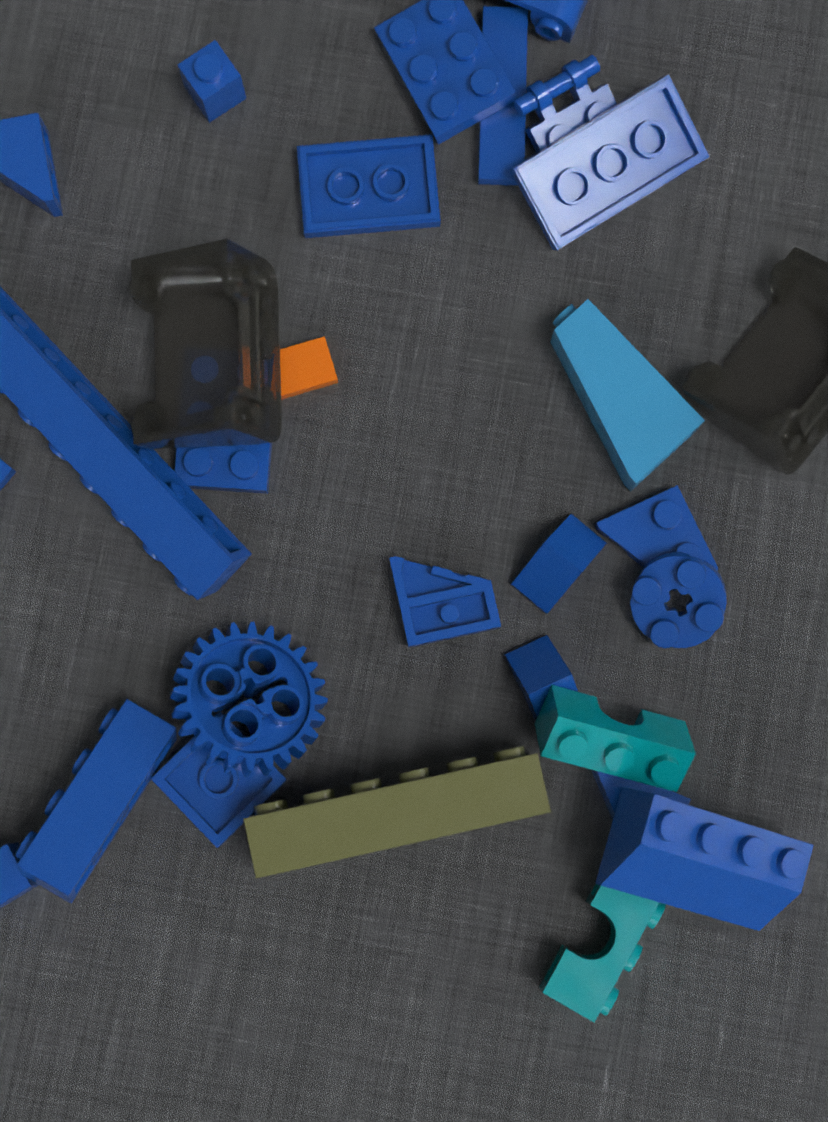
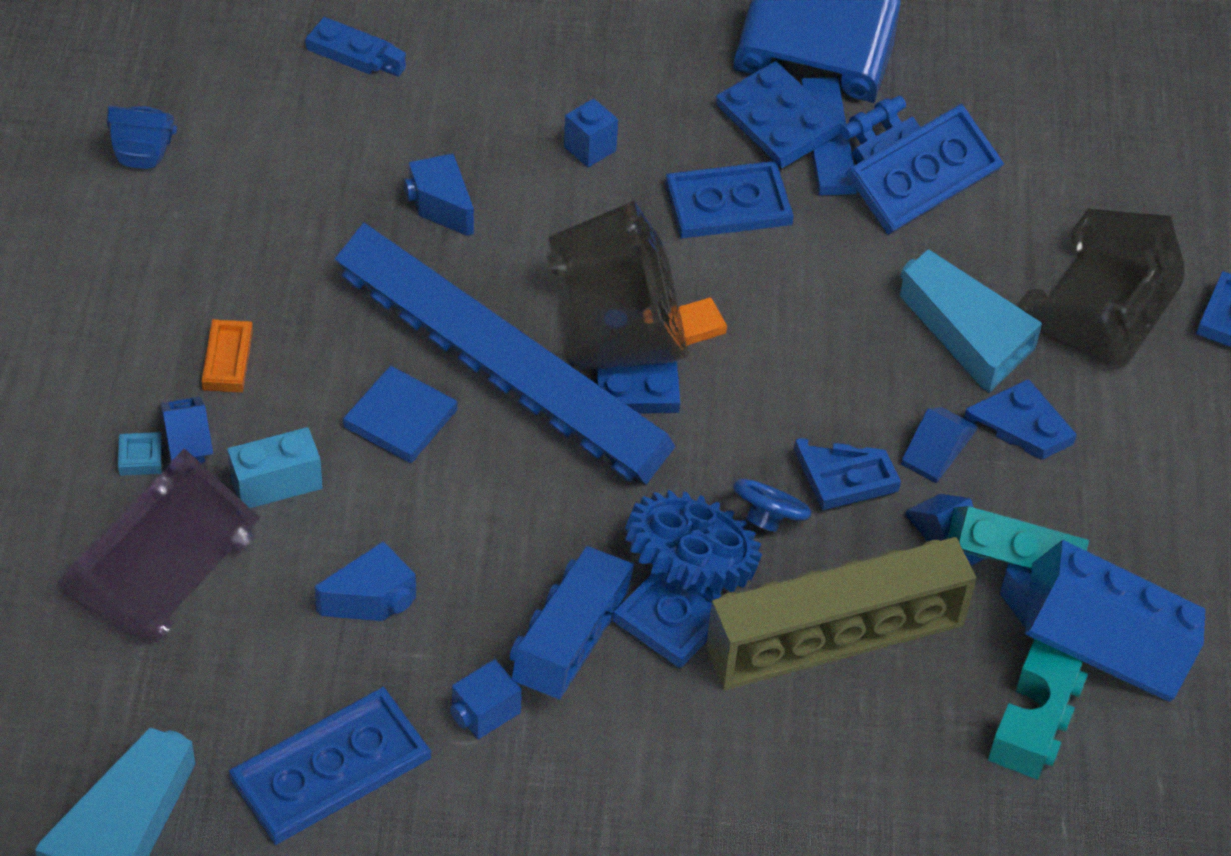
camera: 10 degrees left, 30 degrees down
(345, 648) = (770, 504): none -> blue piece
(690, 576) = (1042, 476): blue plate -> none

